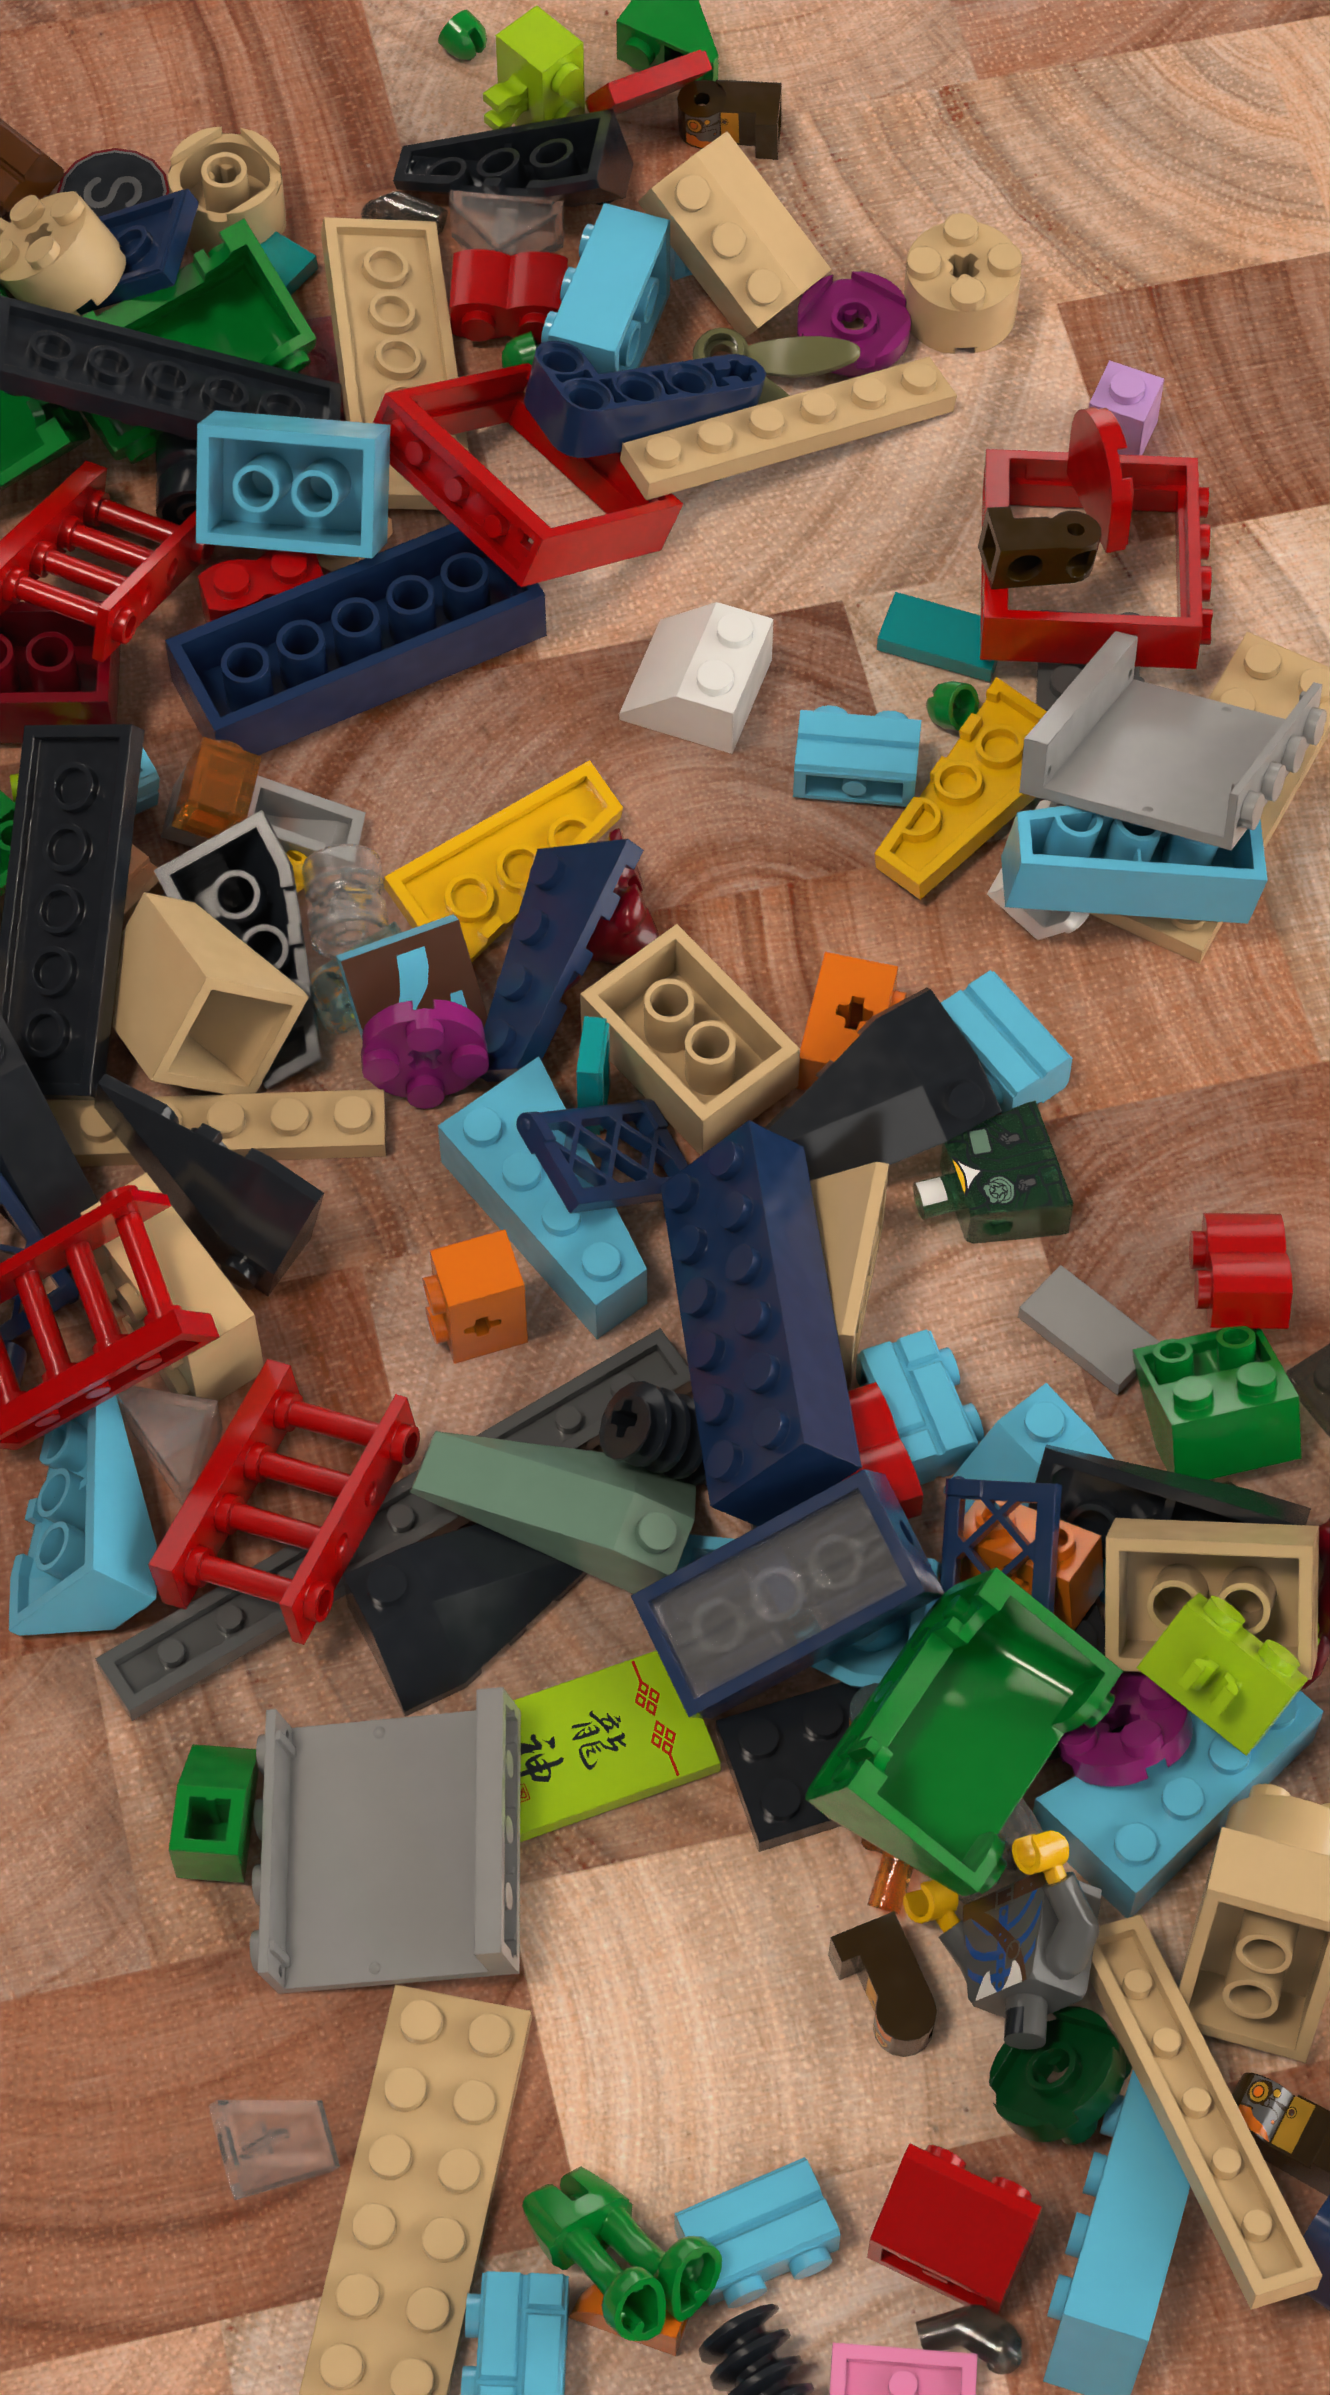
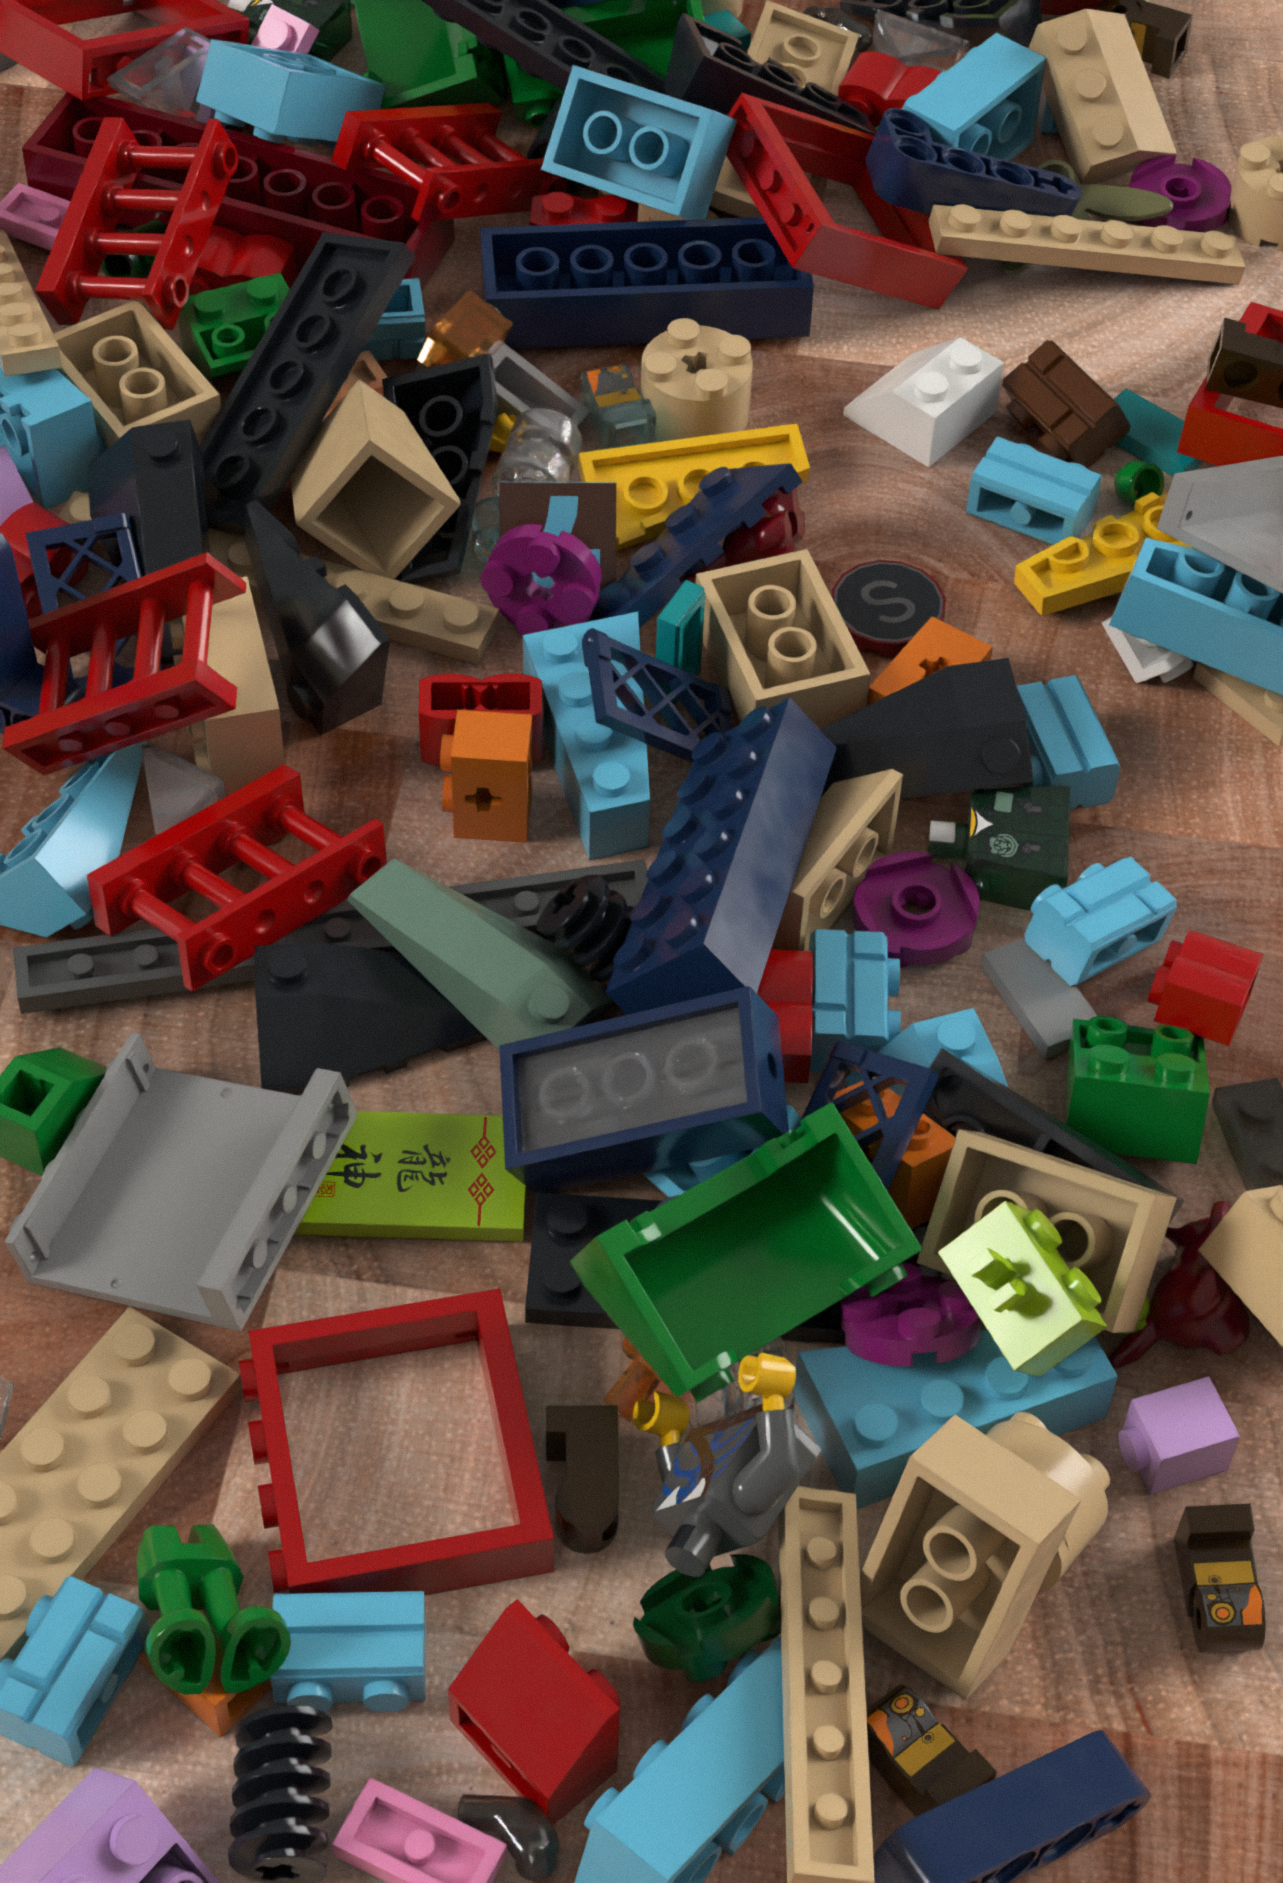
camera: 20 degrees right, 10 degrees down
(345, 362) = (714, 72): none -> black wedge
(395, 805) = (616, 406): none -> clear light blue leg
(409, 1227) = (446, 693): none -> red brick
(465, 748) = (697, 380): none -> tan brick
(629, 2119) = (423, 1566): none -> red window
(767, 942) = (887, 604): none -> black tile
(847, 641) = (1064, 405): none -> reddish brown brick
(938, 1249) = (914, 938): none -> magenta plate
(1116, 1235) = (1099, 919): none -> medium azure brick

